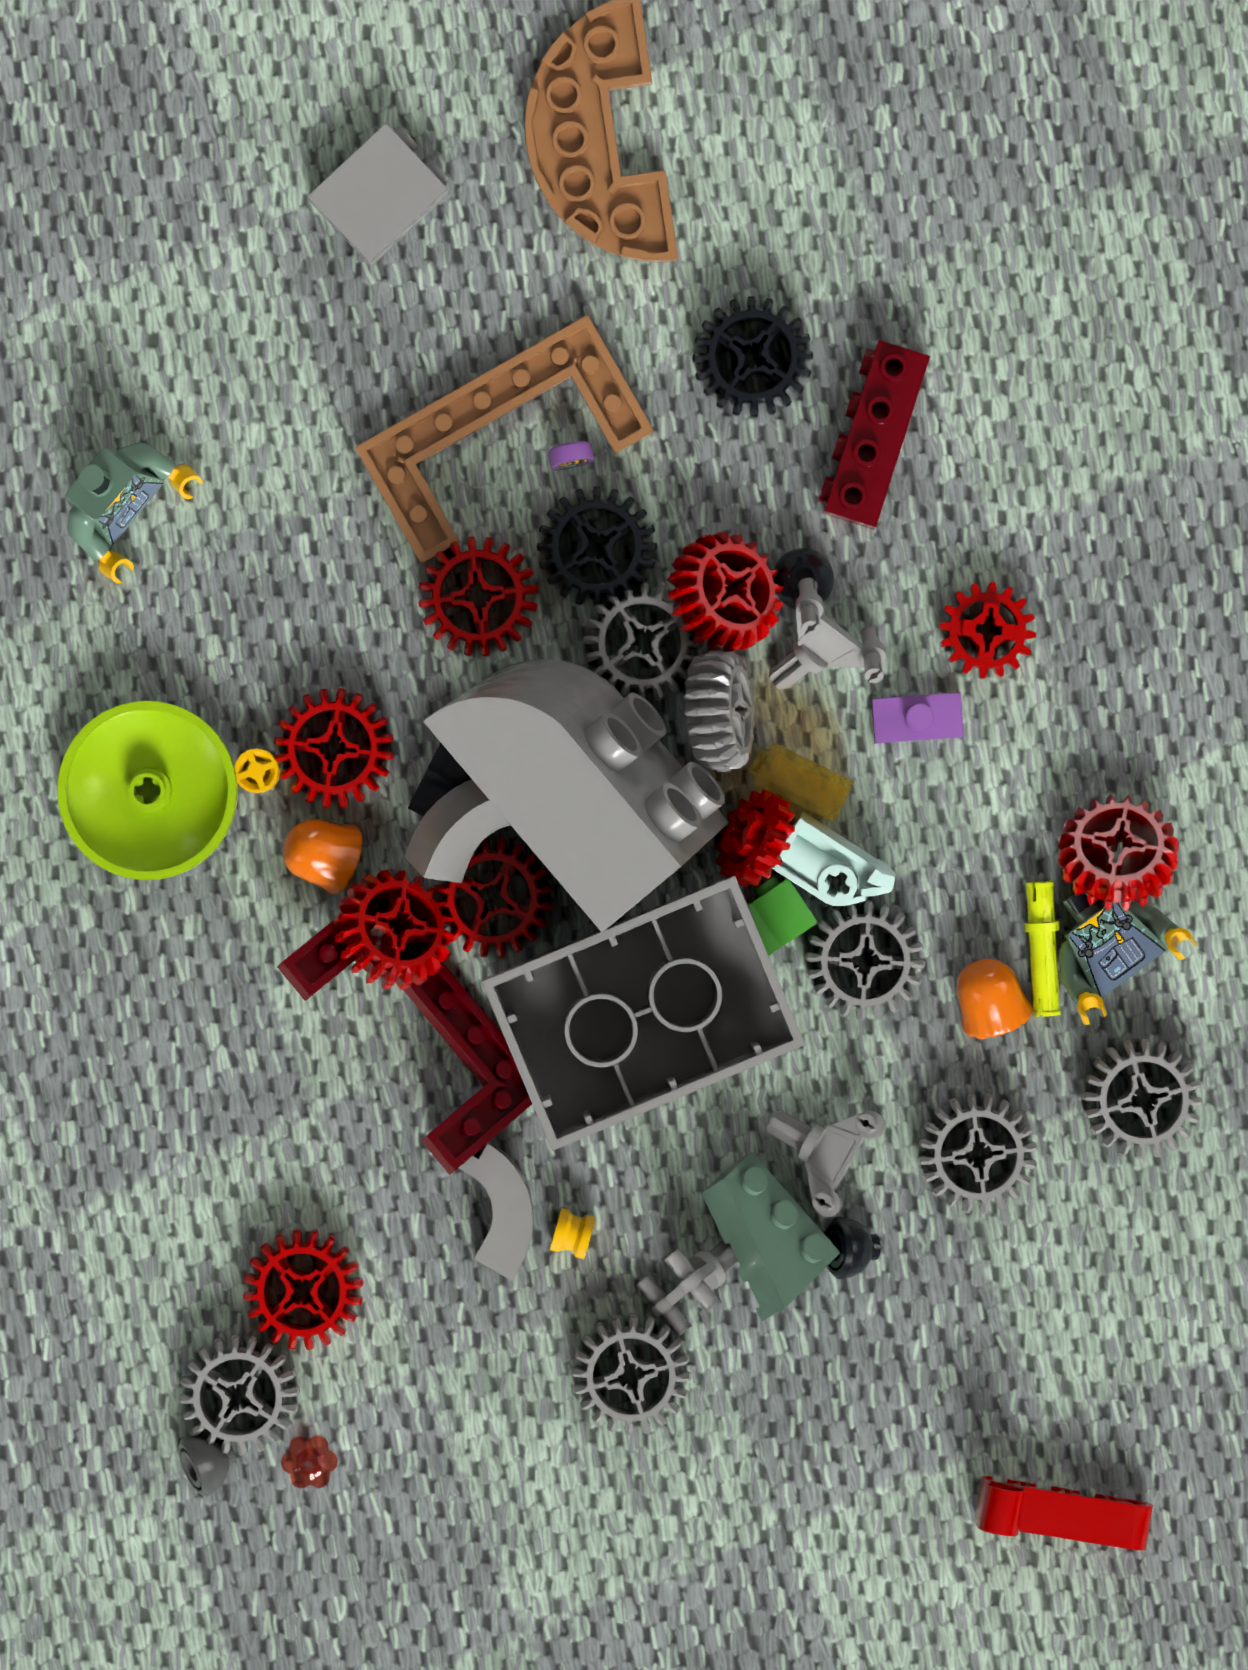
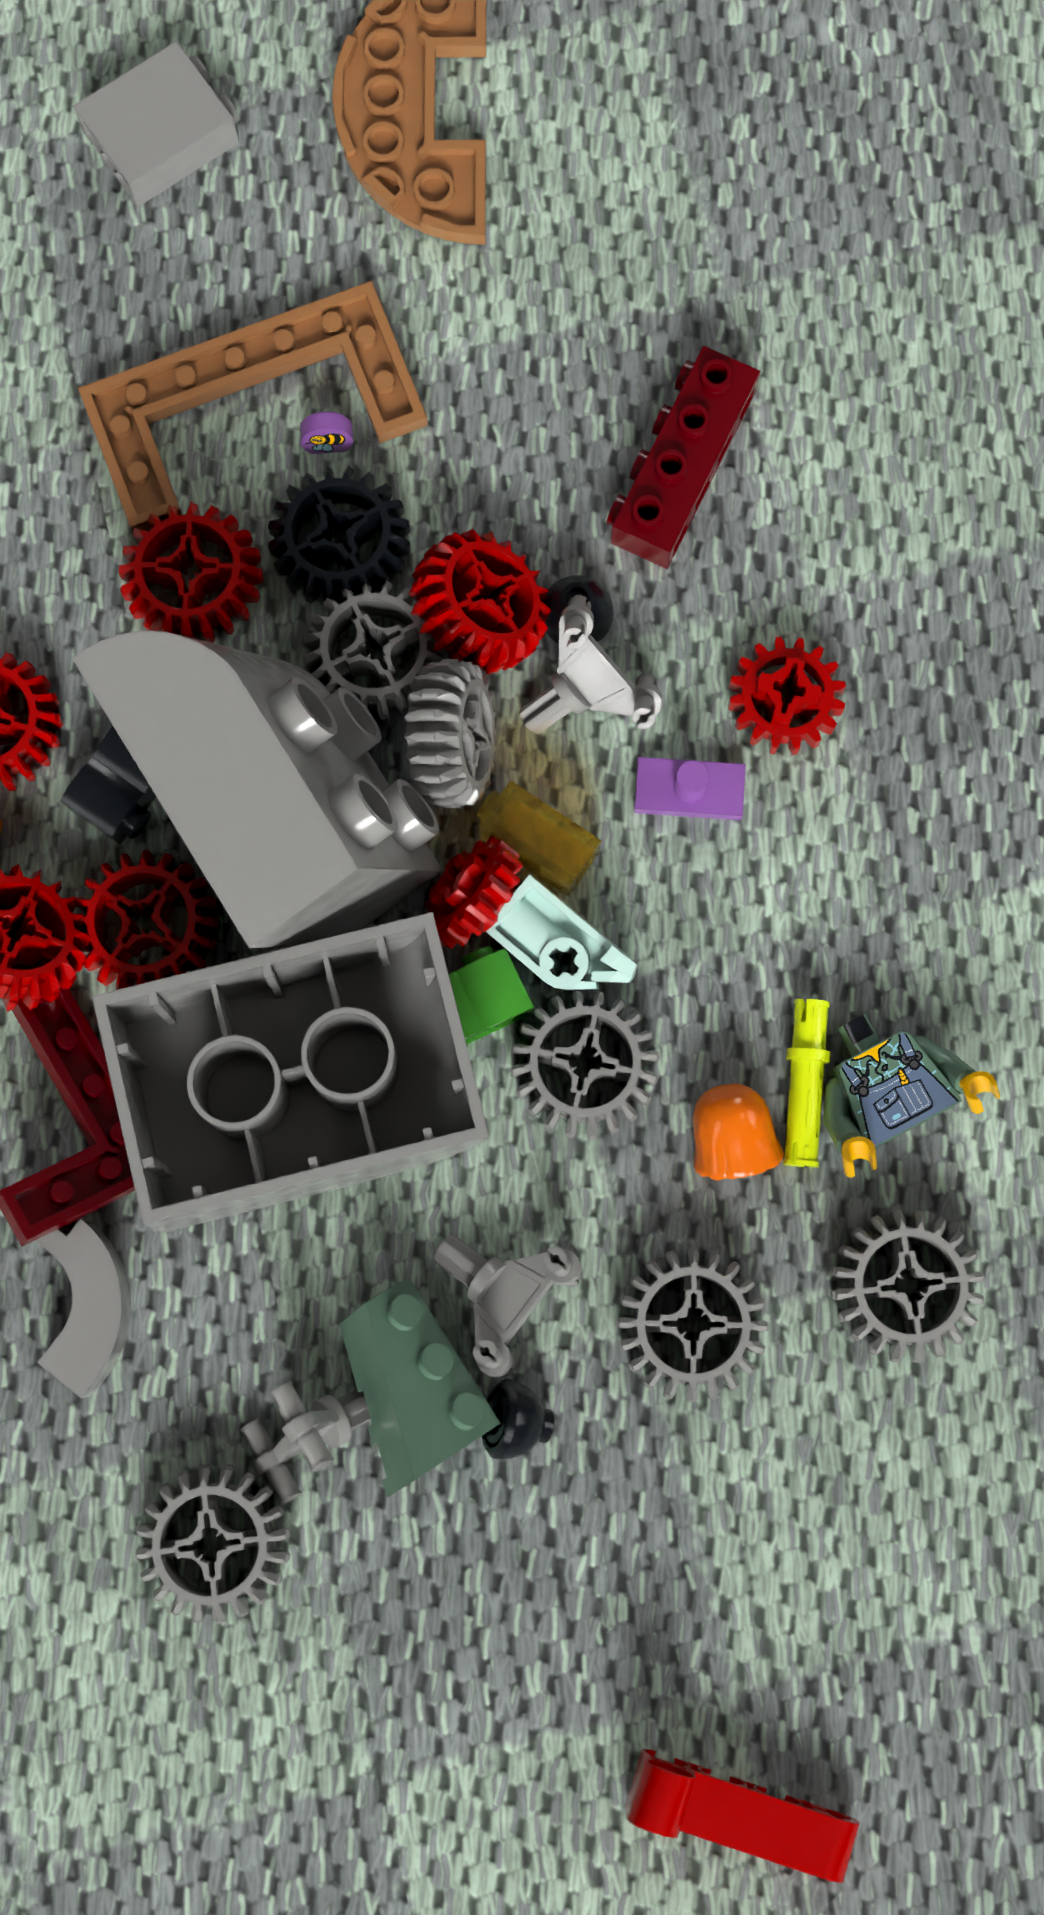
camera: 10 degrees right, 10 degrees down
(452, 833) = (102, 827): light grey arch -> none
(572, 1233) = (170, 1350): yellow wheel -> none
(730, 389) = (580, 382): black gear -> none
(1096, 837) = (947, 982): red gear -> none

